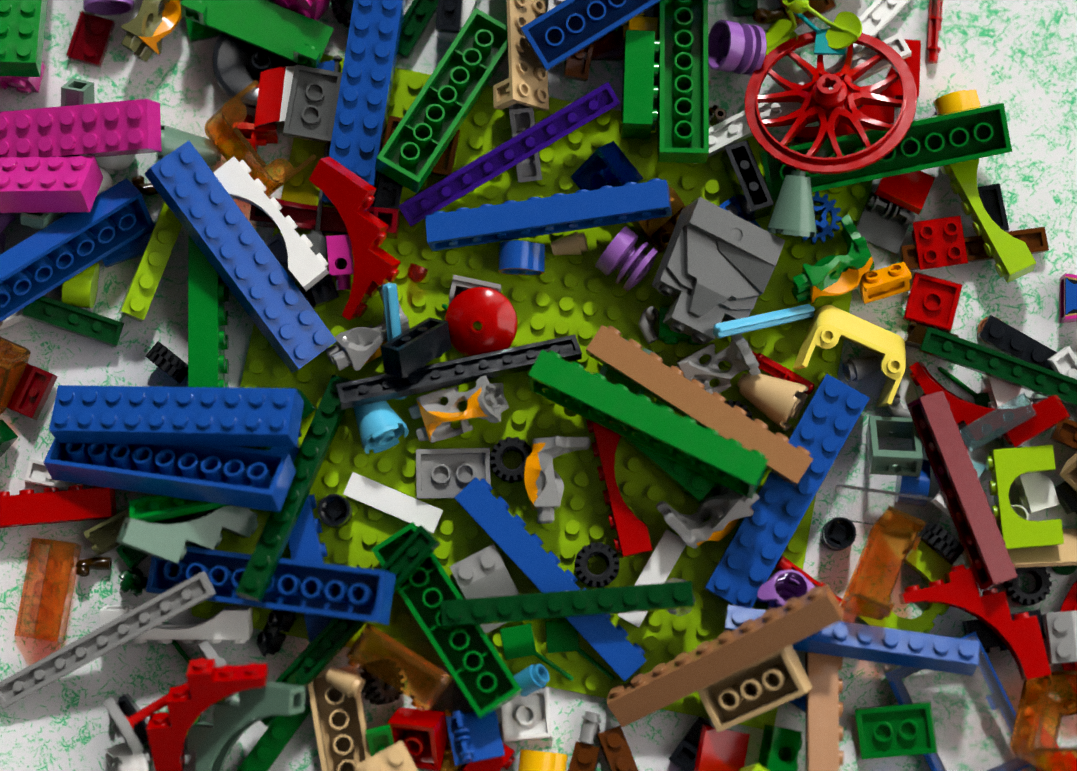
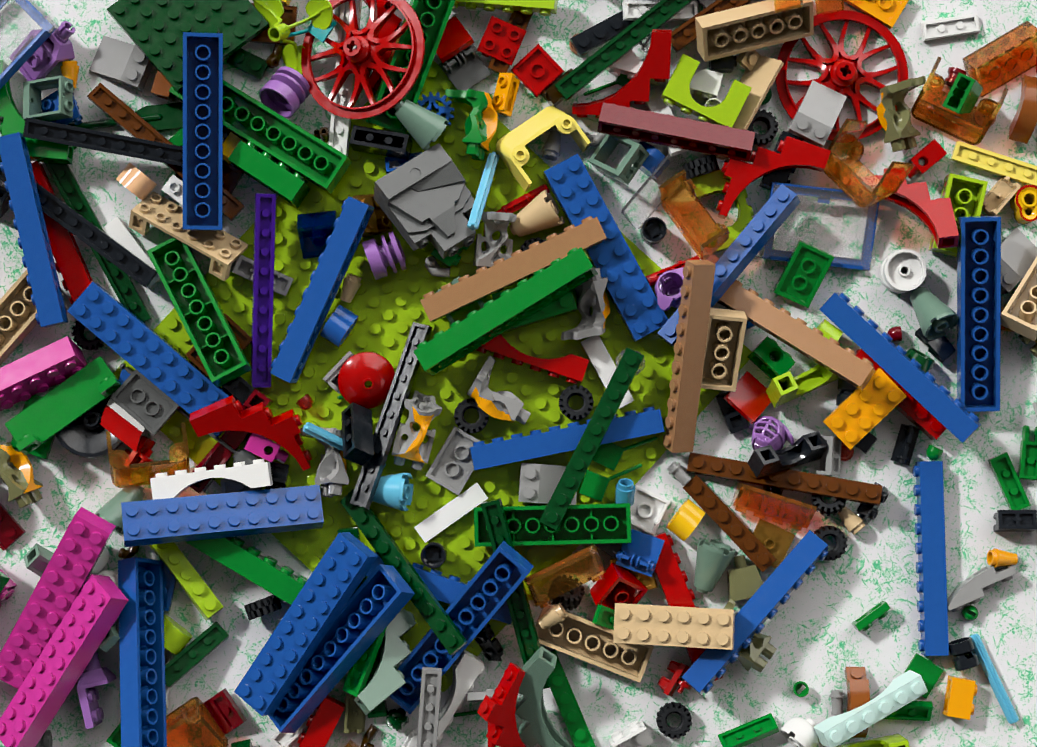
camera: 60 degrees left, 5 degrees up
(997, 422) = (646, 80): clear light blue tile -> none

